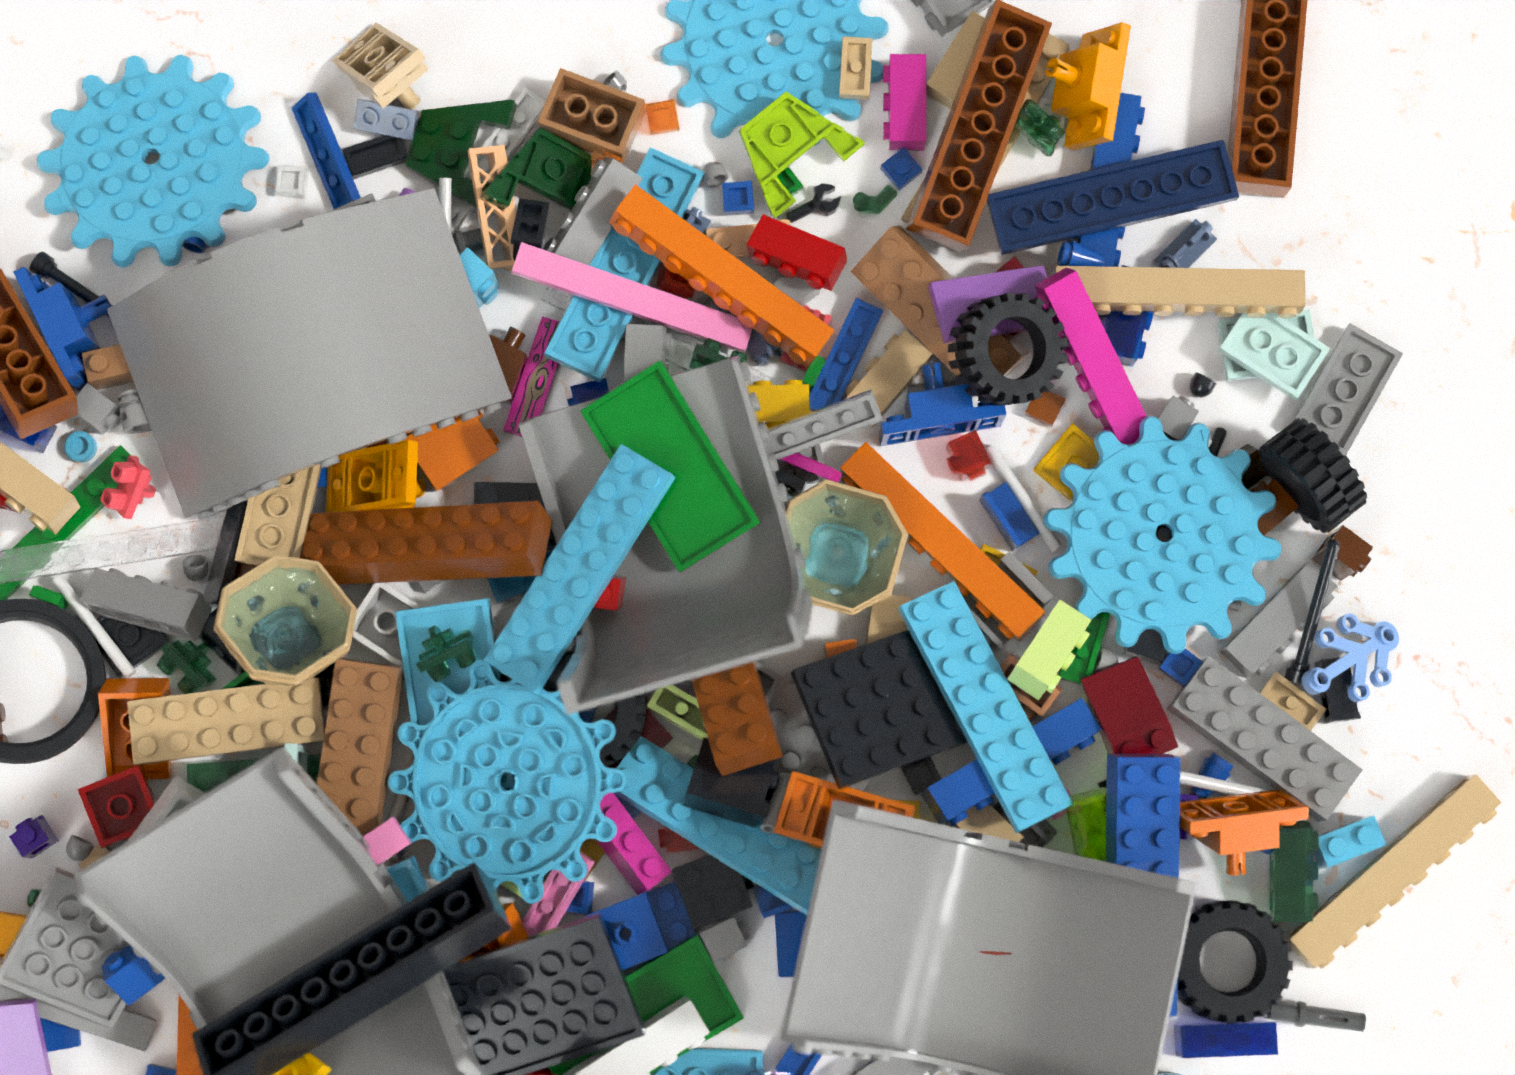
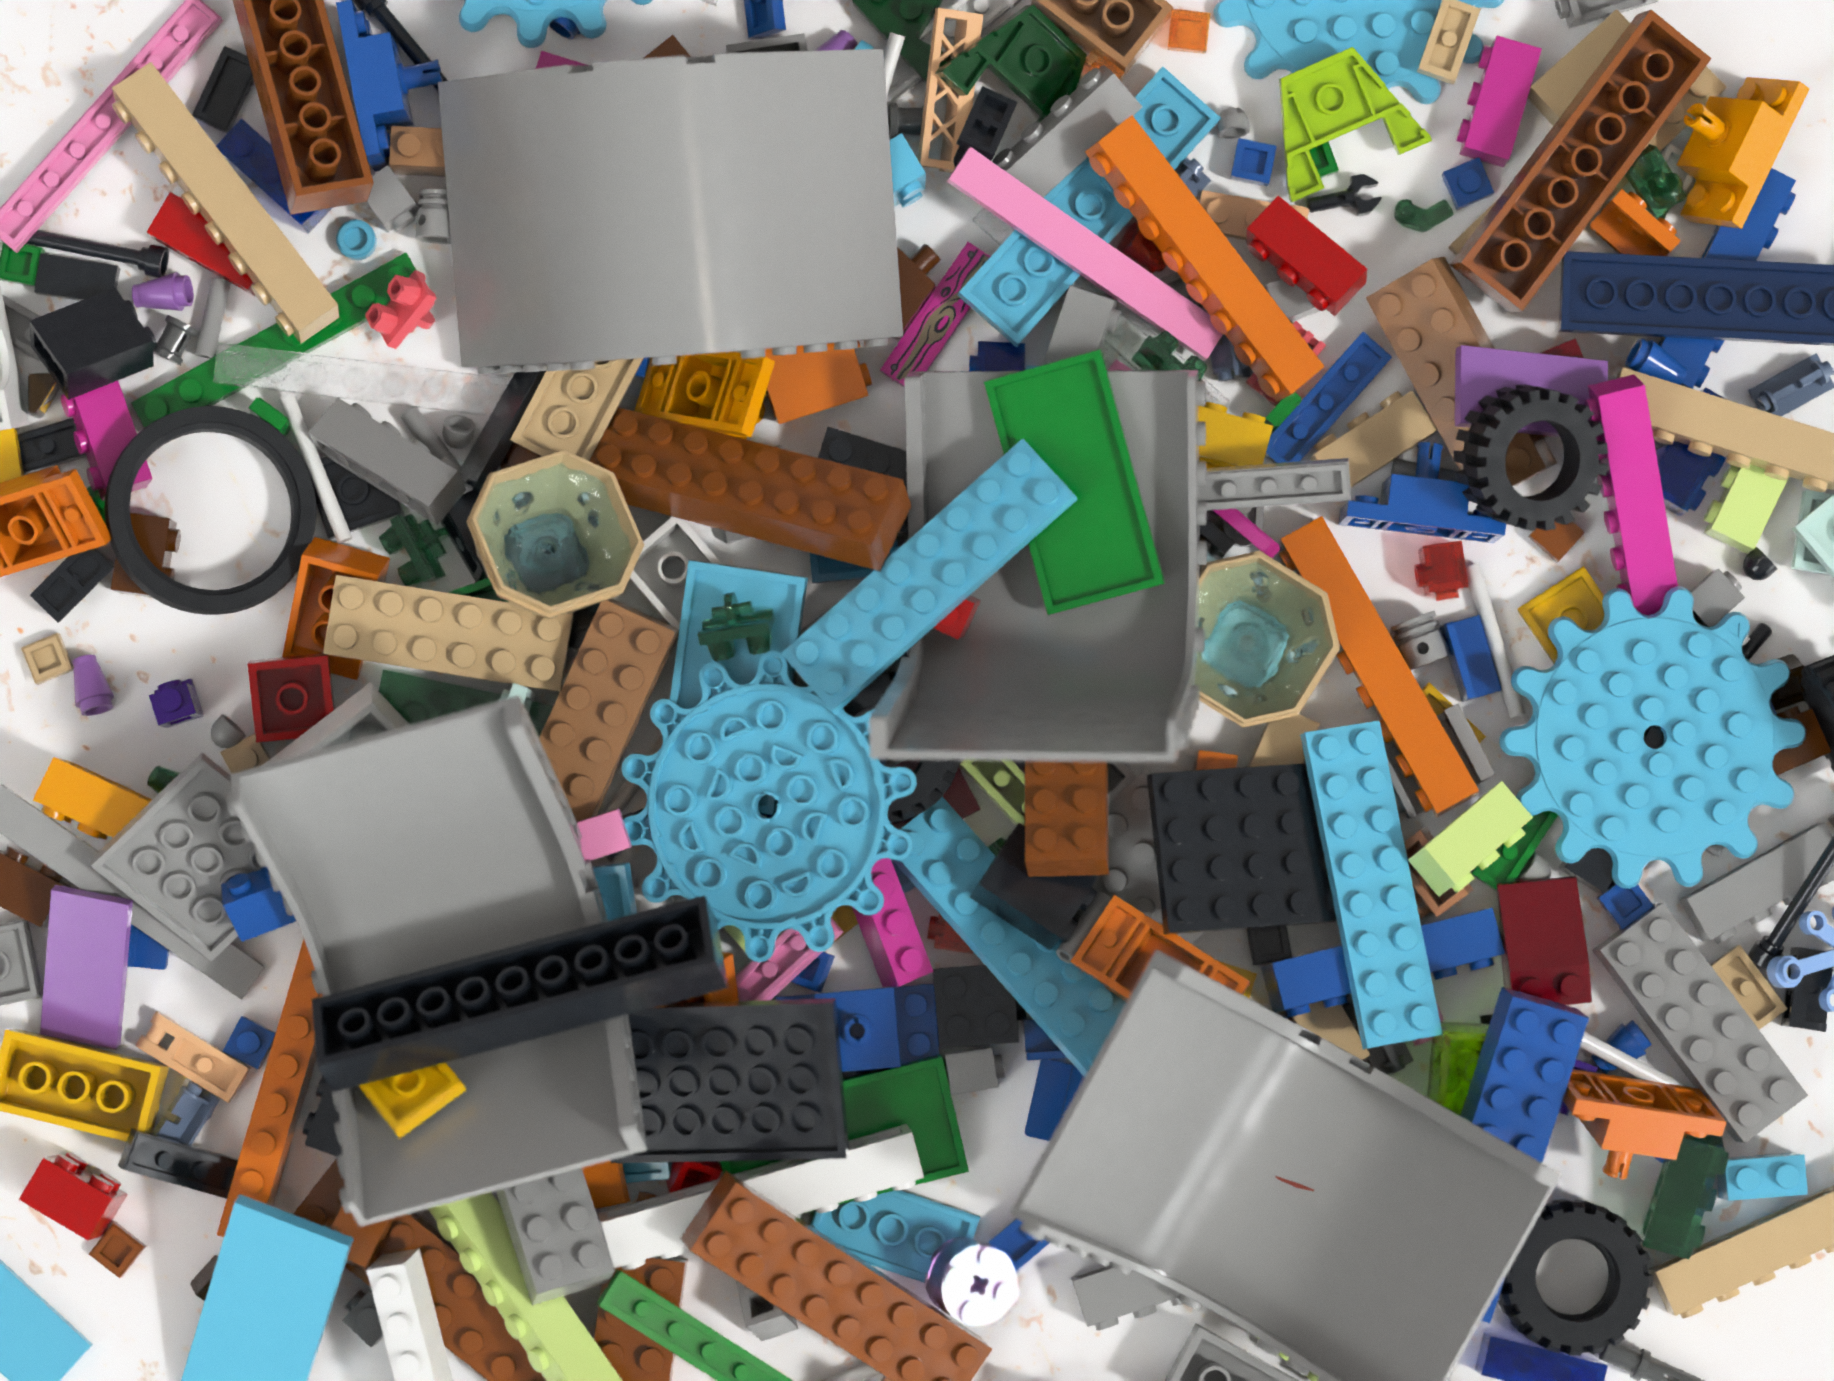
camera: 15 degrees right, 5 degrees up
(171, 576) = (425, 433): none -> light grey piece
(962, 508) = (1418, 631): none -> light grey piece
(1030, 164) = (1632, 229): none -> orange bracket
(1177, 345) = (1743, 507): none -> yellowish green brick

